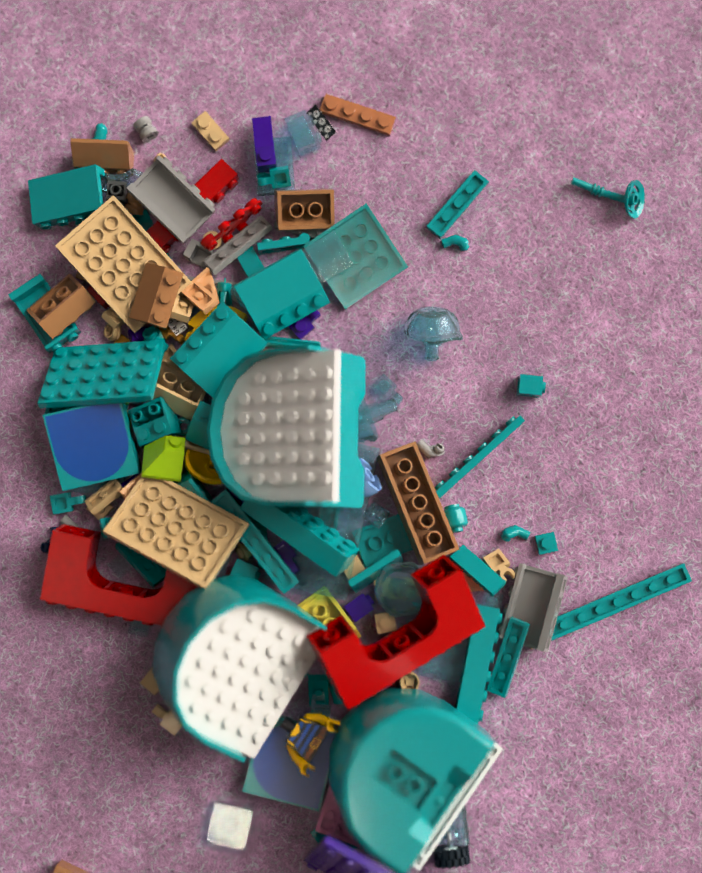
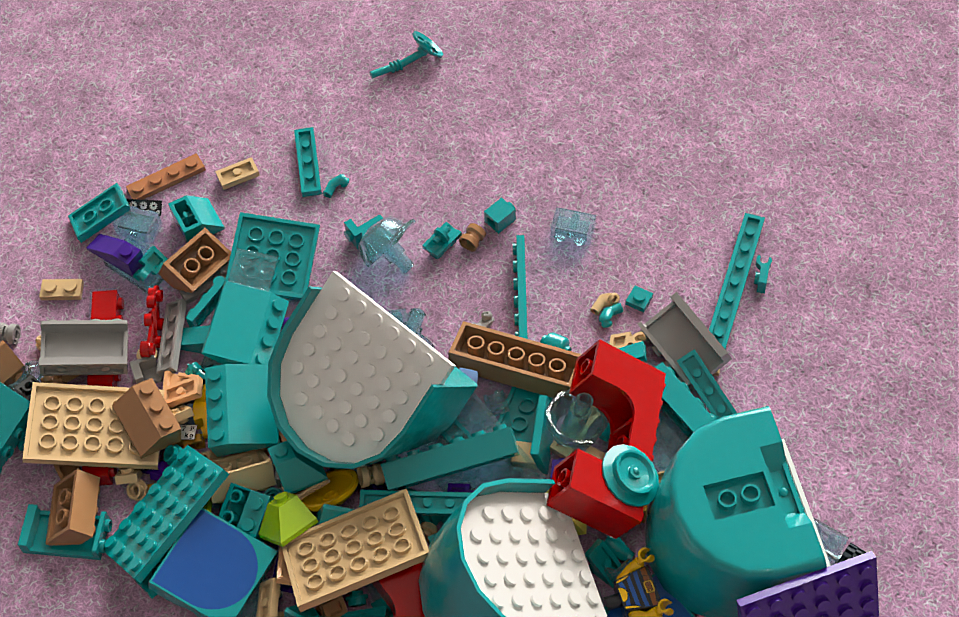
camera: 45 degrees left, 25 degrees down
(286, 99) = (99, 212): none -> teal tile
(341, 171) = (193, 215): none -> teal slope
(374, 675) = (630, 475): none -> teal piece
(404, 163) = (237, 173): none -> tan plate
(430, 298) = (354, 233): none -> teal bracket
(472, 363) = (441, 240): none -> teal hips
(494, 381) = (471, 238): none -> medium nougat wheel
(522, 519) = (603, 301): none -> tan arm
(565, 447) = (573, 226): none -> clear light blue brick
(636, 618) = (761, 278): none -> teal plate

